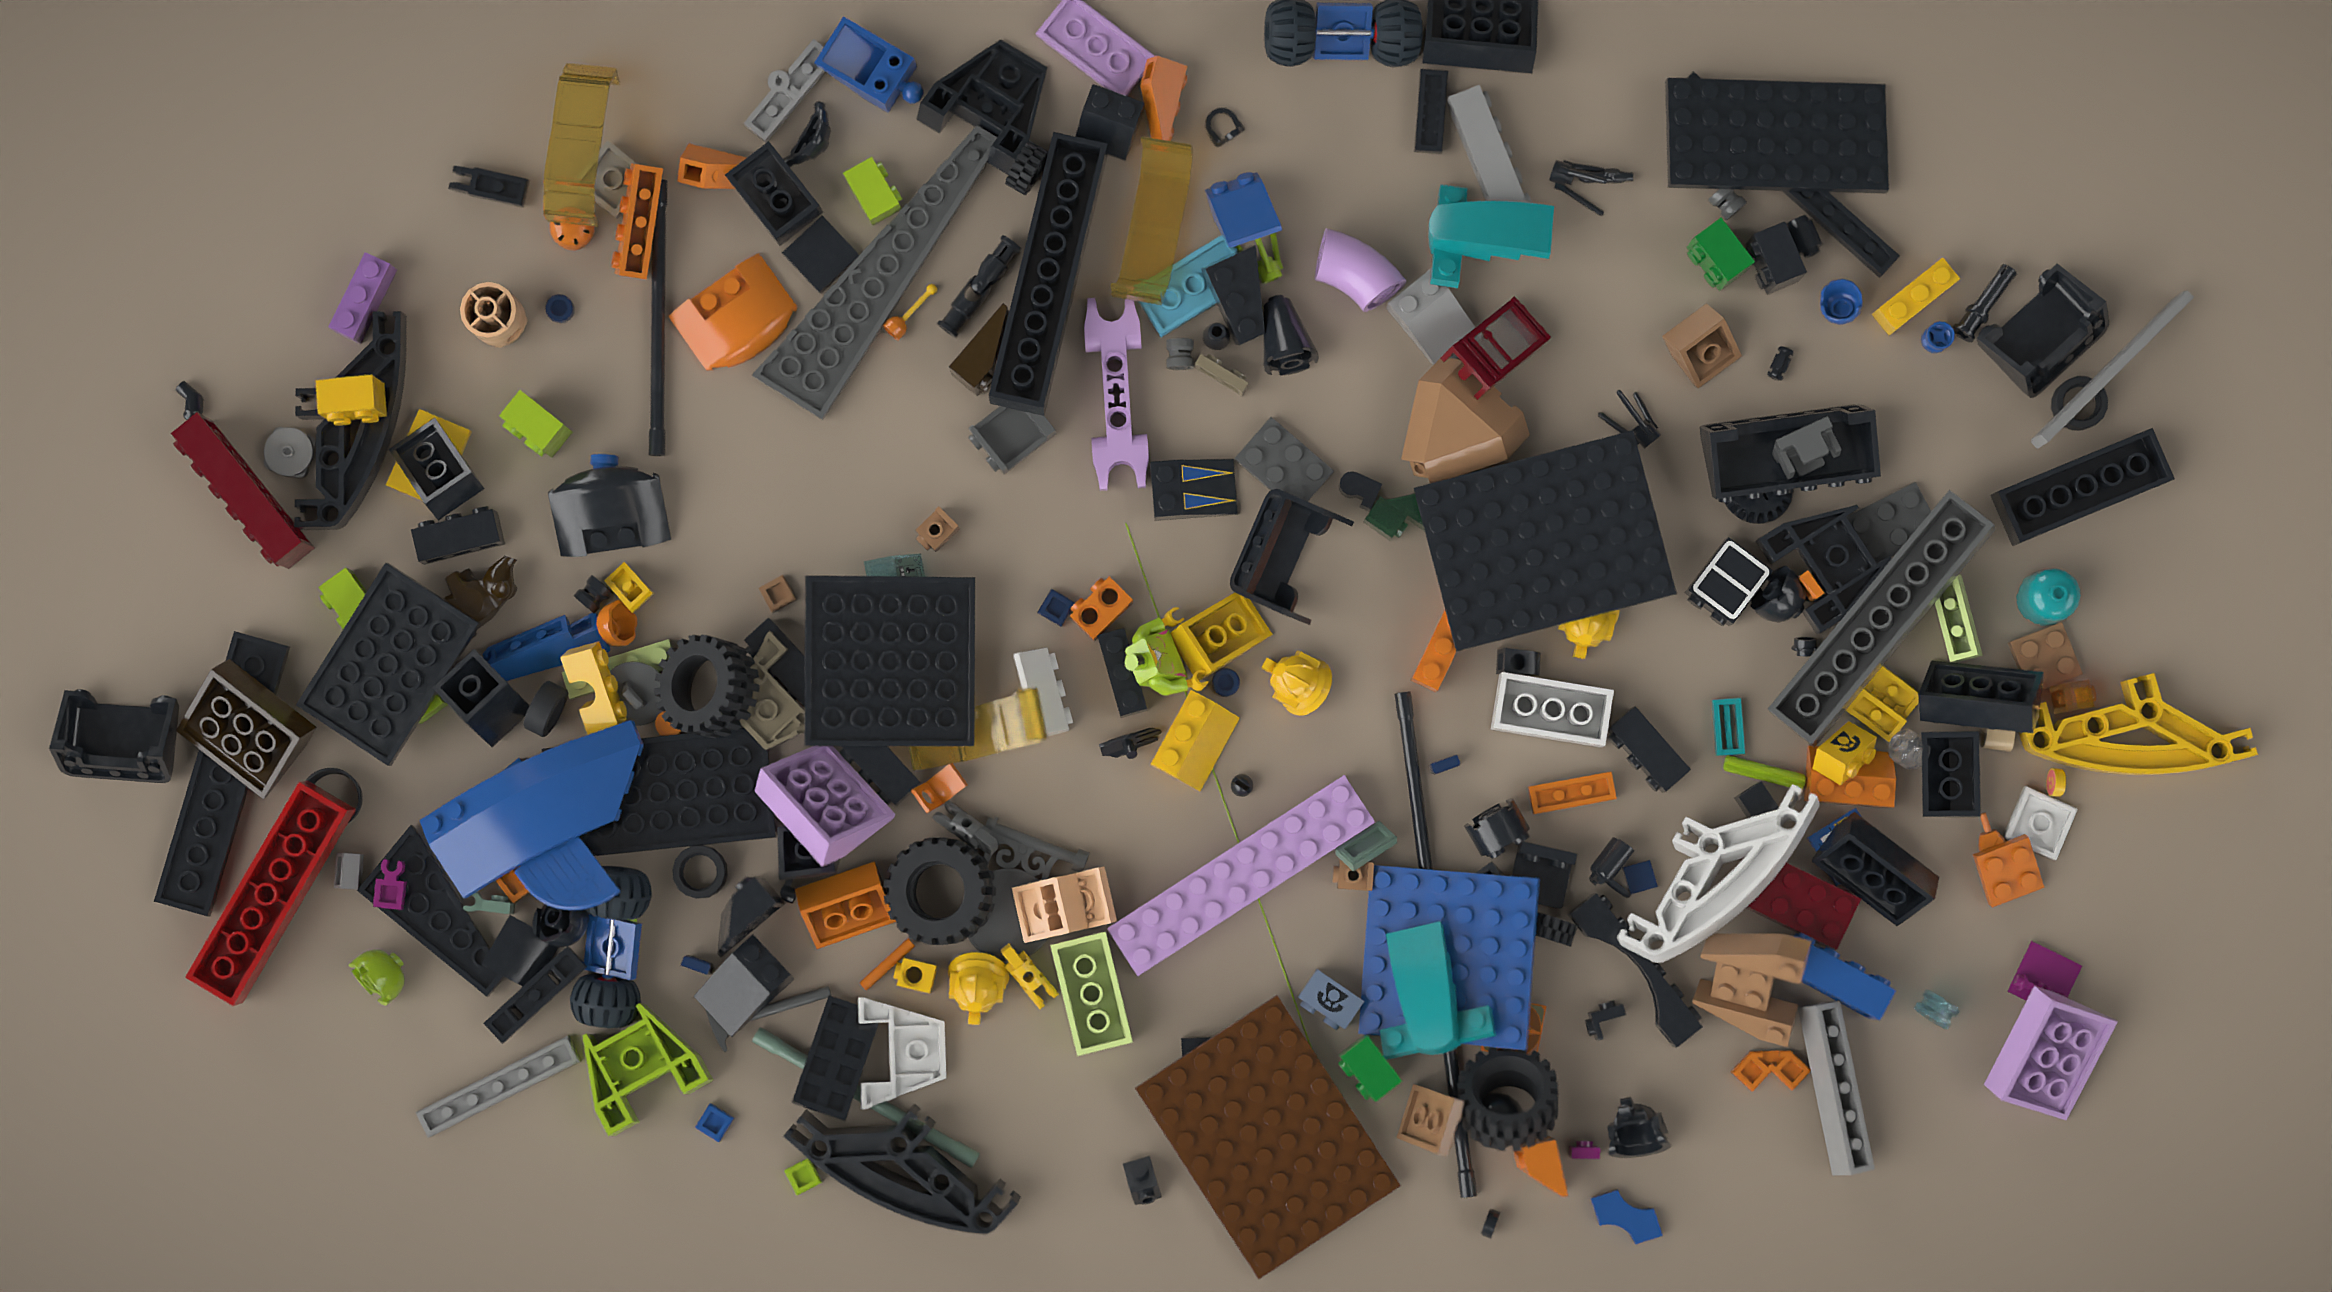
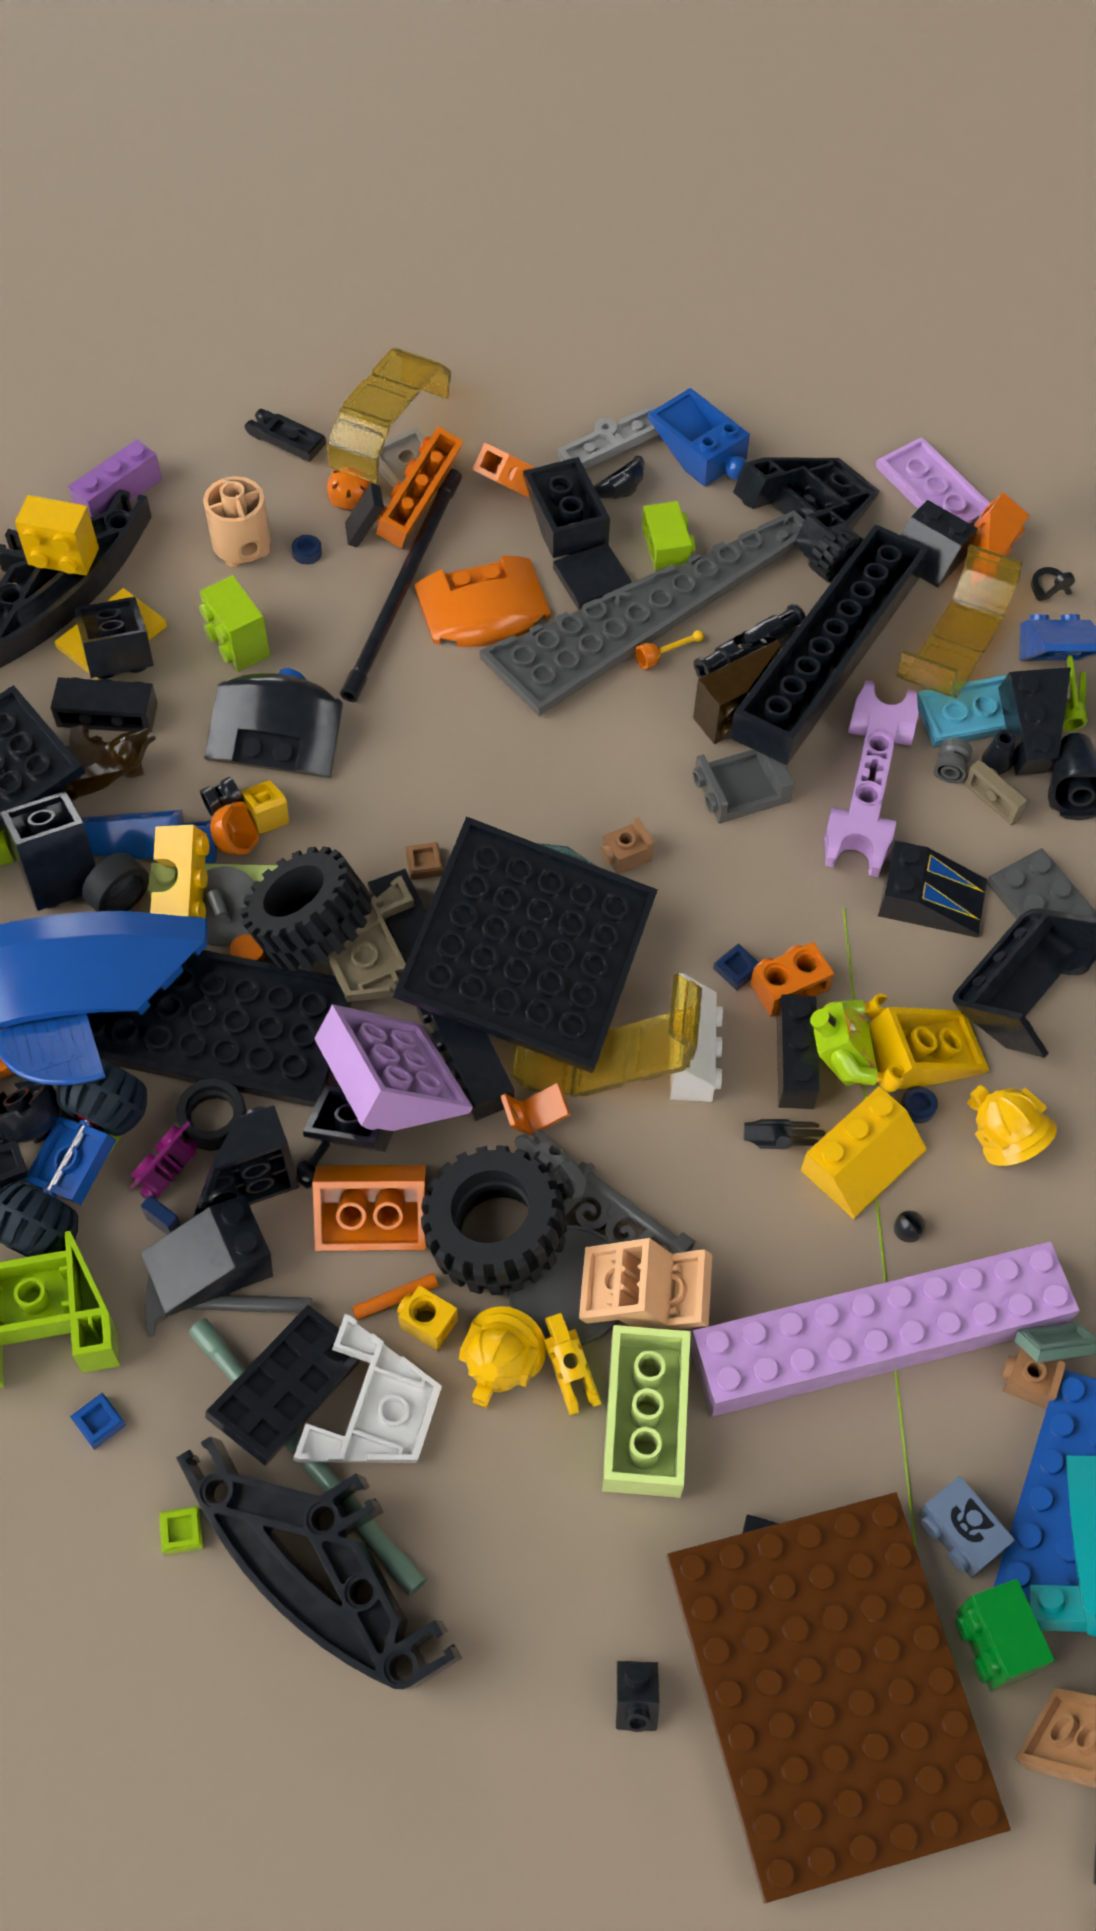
camera: 15 degrees right, 25 degrees down
(600, 266) = (364, 515): none -> black tile
(673, 933) = (169, 1145): none -> magenta hinge

